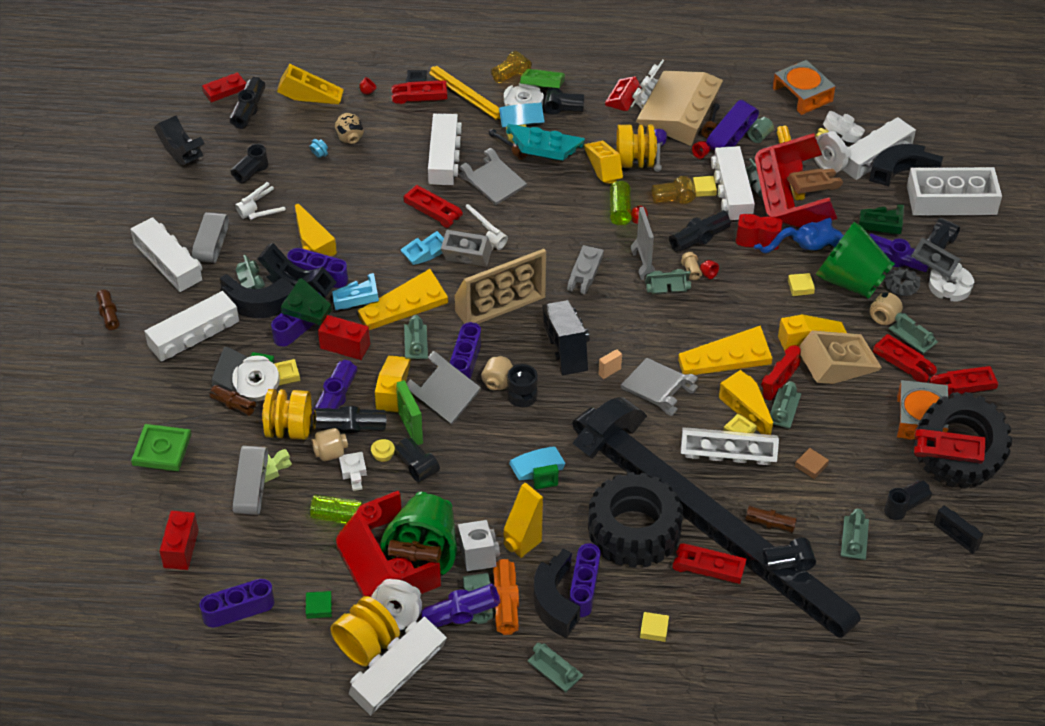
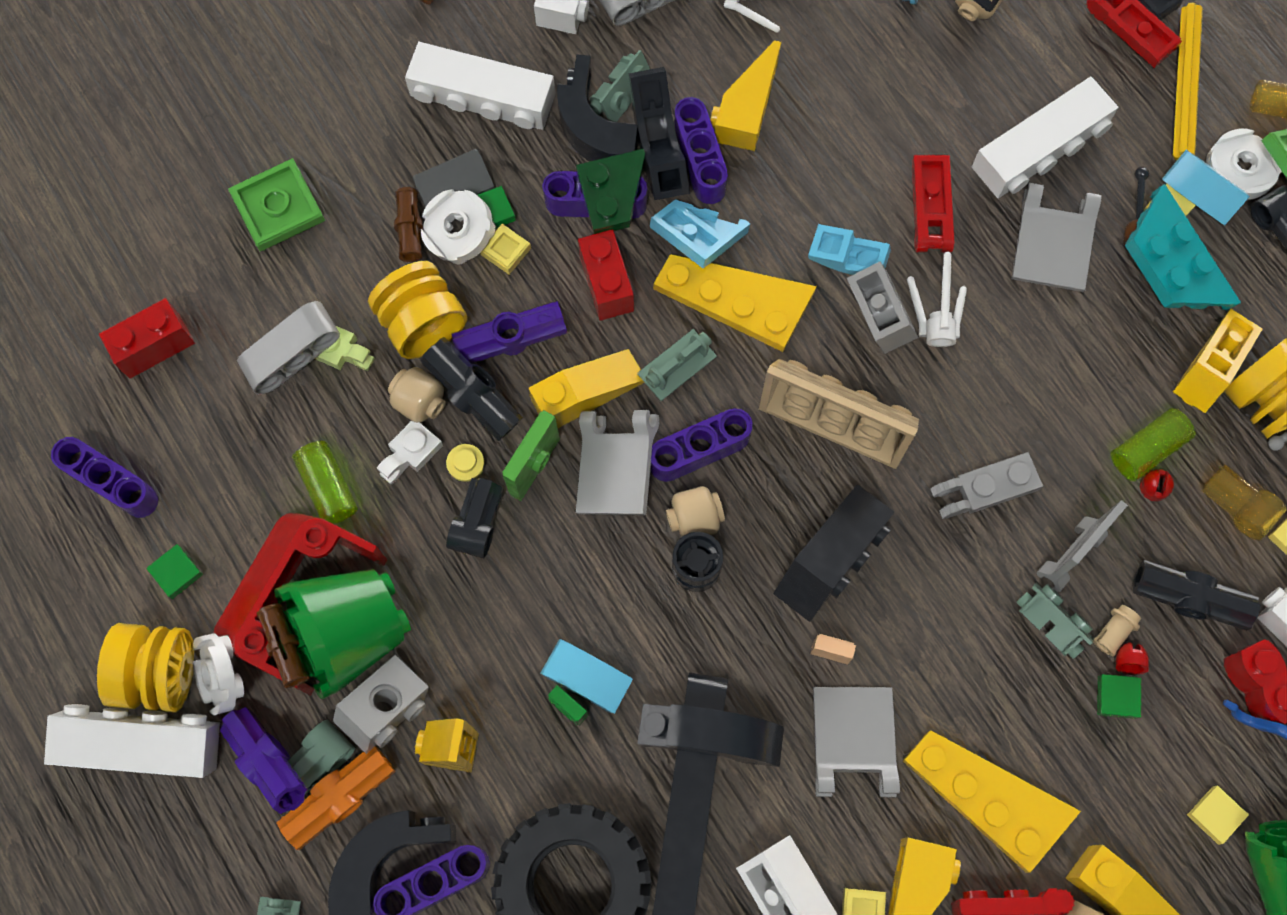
camera: 55 degrees right, 25 degrees up
(721, 284) = (1119, 696): none -> green tile

